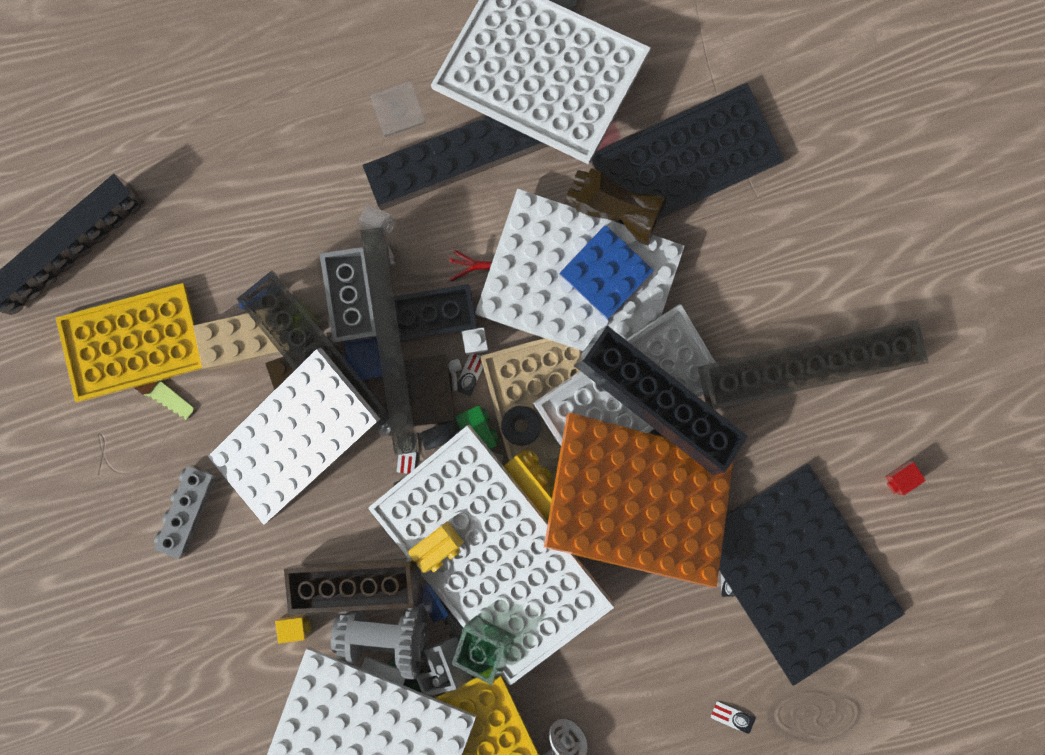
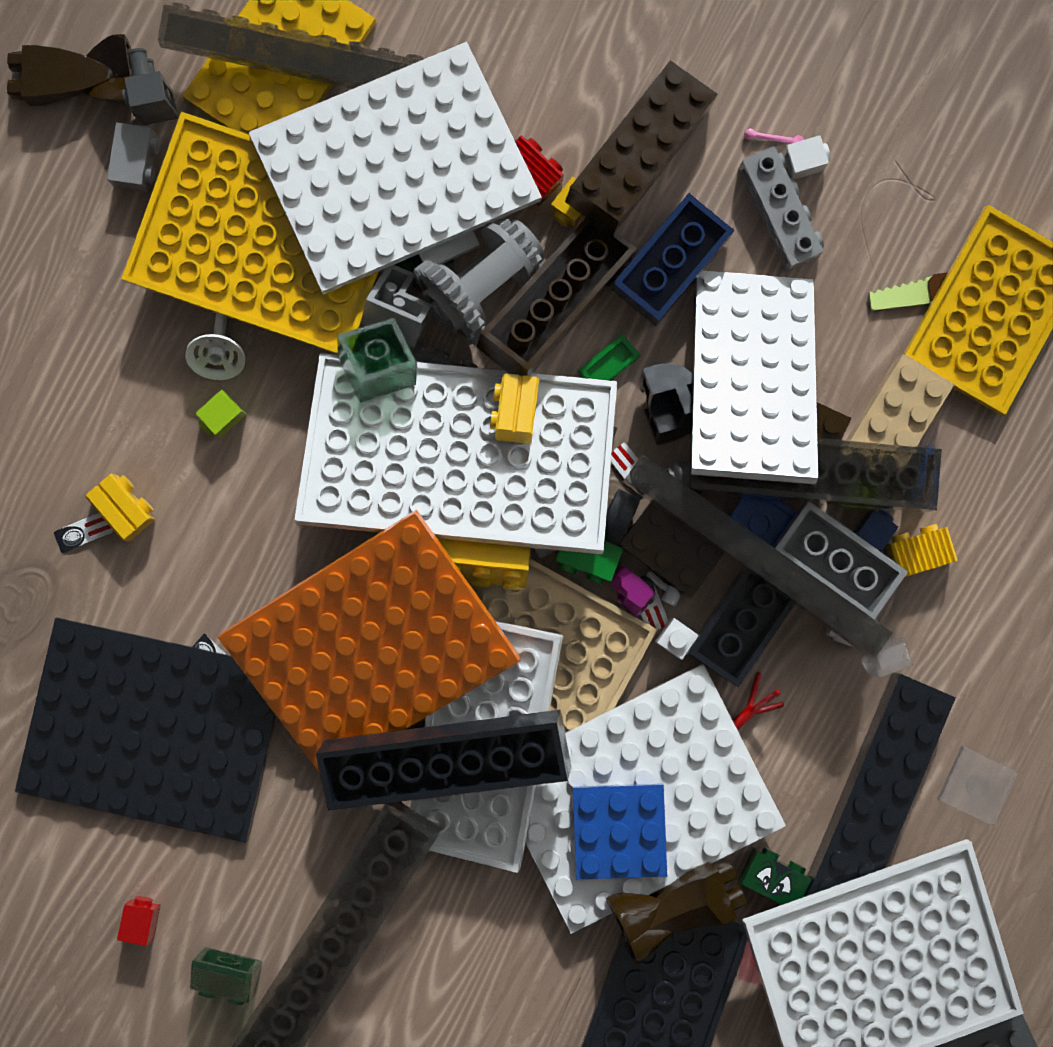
camera: 130 degrees right, 0 degrees up
(139, 539) = (750, 134): none -> bright pink hinge
(143, 525) = (806, 157): none -> white brick
(225, 621) = (640, 148): none -> dark brown brick
(271, 543) = (672, 259): none -> dark blue brick
(290, 660) = (544, 172): none -> red brick
(300, 256) = (922, 551): none -> yellow brick
(312, 292) = (876, 528): none -> dark blue brick
(351, 470) = (668, 401): none -> black brick
(359, 522) = (610, 361): none -> green tile
(433, 605) = (466, 355): blue piece -> none
(473, 389) = (632, 591): none -> magenta rock
(508, 425) = (567, 610): black tyre -> none
(550, 167) = (773, 877): none -> dark green brick
(596, 706) = (219, 414): none -> lime brick
(700, 710) = (120, 507): none -> yellow brick
(887, 405) = (225, 975): none -> clear green slope

